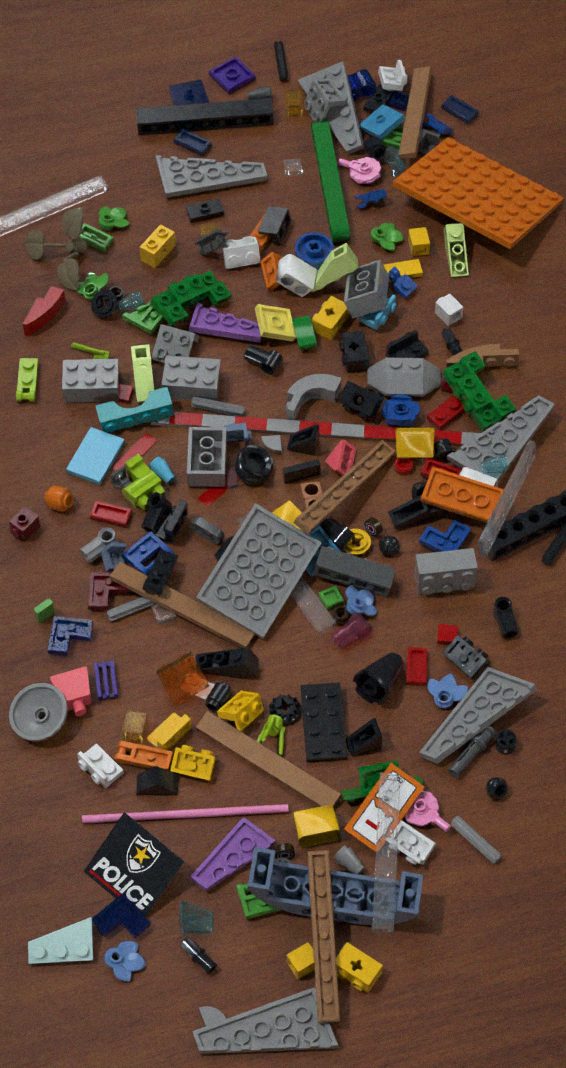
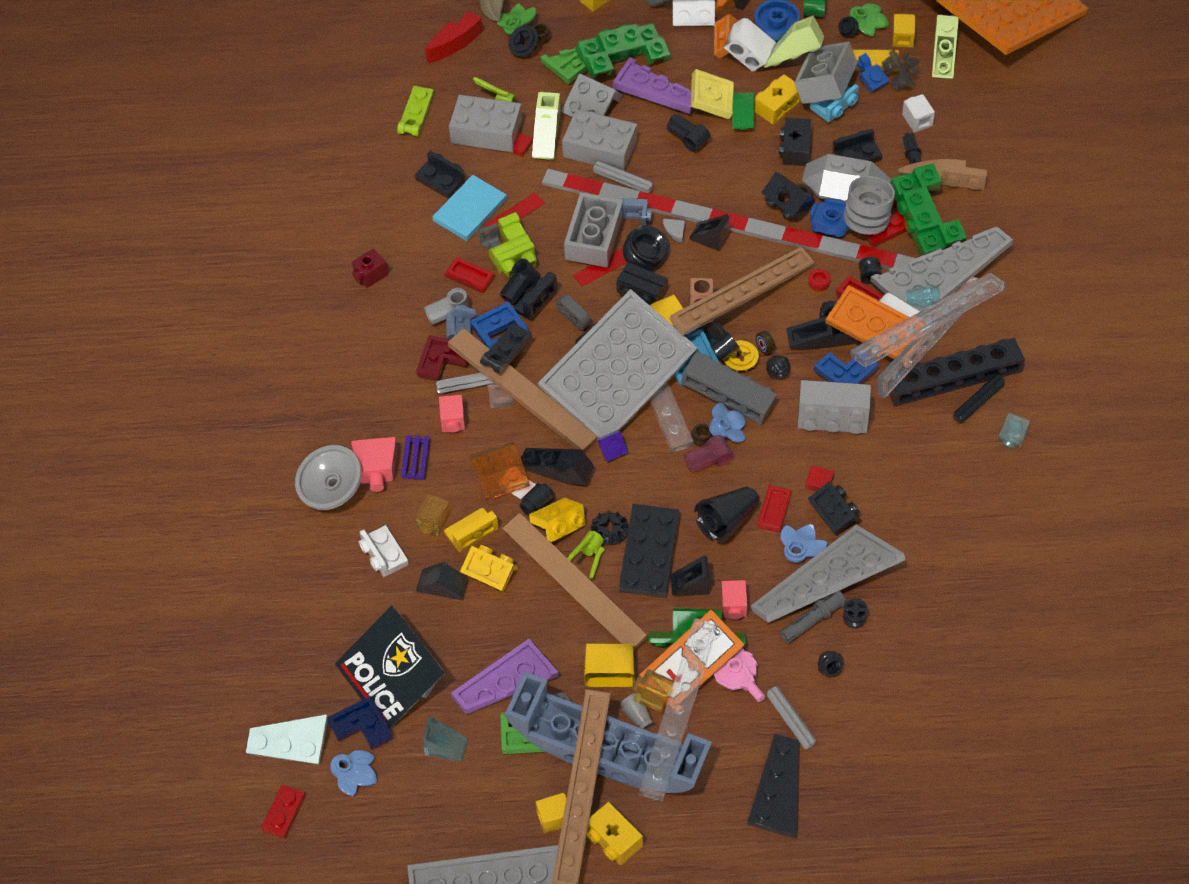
camera: 15 degrees right, 0 degrees up
(44, 610) = (366, 367): bright green tile -> none
(59, 498) = (415, 247): orange head -> none
(63, 432) = (441, 175): none -> black bracket
(66, 629) = (385, 393): clear blue plate -> none
(73, 1007) = (283, 811): none -> red plate
(127, 636) = (451, 413): none -> coral brick
(131, 301) = (555, 43): clear light blue cone -> none
(143, 756) = (434, 549): orange plate -> none
(155, 407) = (551, 164): teal arch -> none
(162, 470) = (540, 236): medium azure cone -> none
(192, 813) = (470, 623): bright pink piece -> none
(198, 955) = (437, 783): black axle -> none
(211, 1015) = (434, 852): light grey tile -> none
(259, 493) = (646, 284): none -> black brick
(269, 638) = (612, 445): none -> dark purple plate
(284, 850) = (565, 685): dark brown tile -> none
(301, 471) = (698, 265): black tile -> none
(311, 387) = (733, 173): light grey arch -> none
(331, 598) = (695, 413): bright green tile -> none
(342, 457) = (750, 257): coral slope -> none
(360, 840) = (653, 690): none -> clear yellow brick
(372, 245) = (848, 26): none -> black plate
(404, 749) = (734, 599): none -> coral brick
(413, 844) = (715, 707): white bracket -> none
(414, 442) = (837, 255): yellow piece -> none
(419, 270) = (894, 62): none -> clear smoke hips
(431, 395) = (869, 204): none -> light grey wheel
(481, 905) = (777, 792): none -> black wing
(504, 484) = (927, 319): none -> clear tile
(505, 618) = (891, 472): black piece -> none

